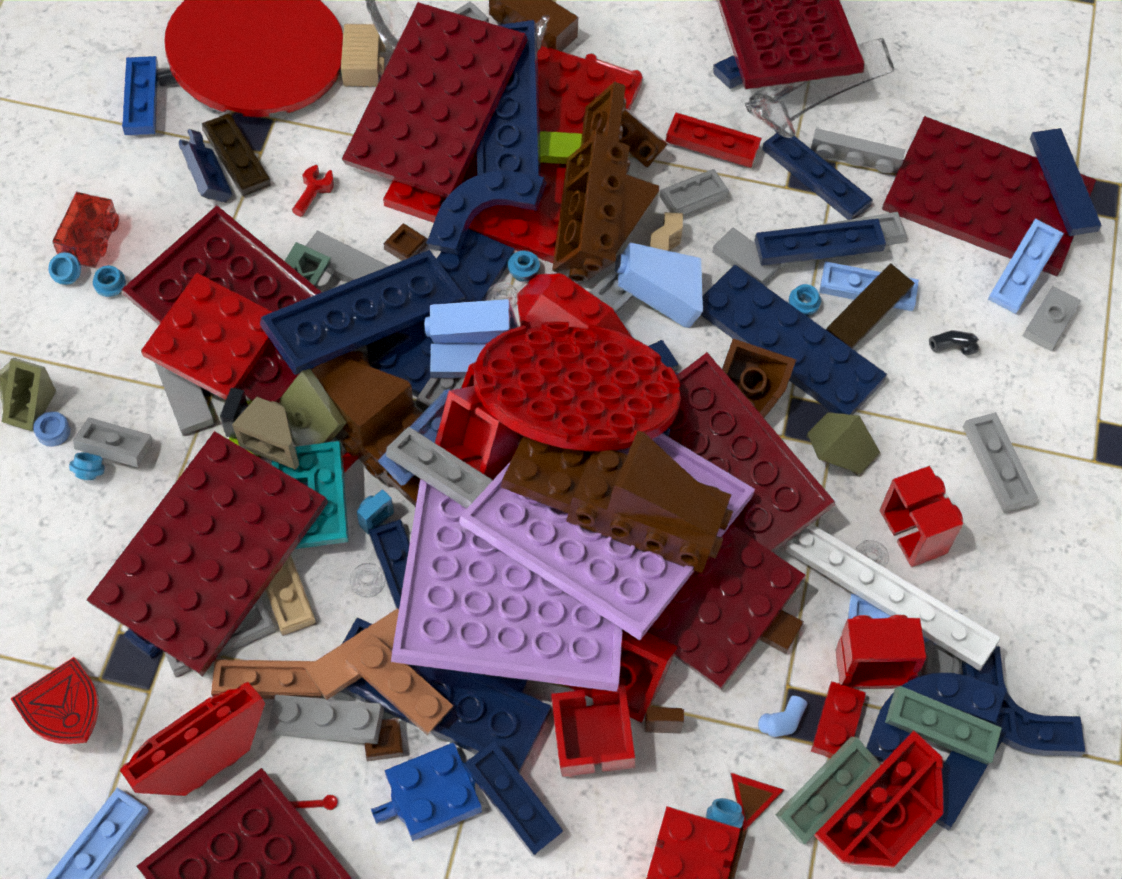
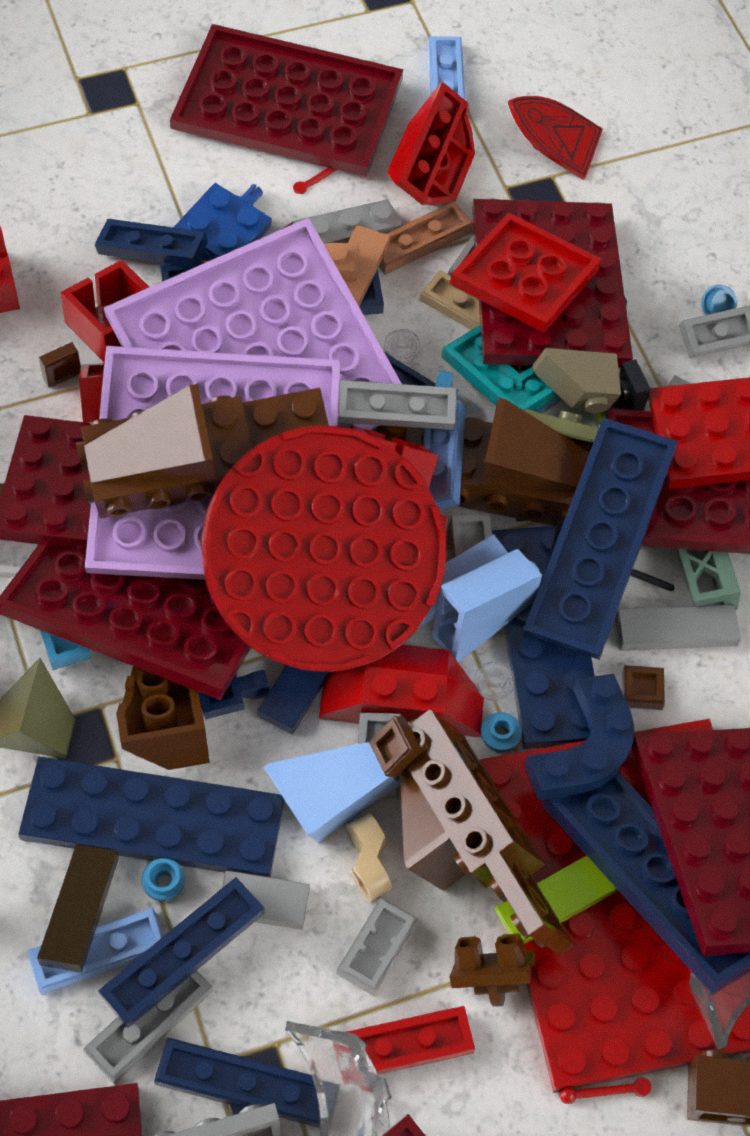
camera: 145 degrees right, 0 degrees up
(234, 541) = (525, 272): none -> red plate
(618, 247) = (395, 746): none -> reddish brown tile

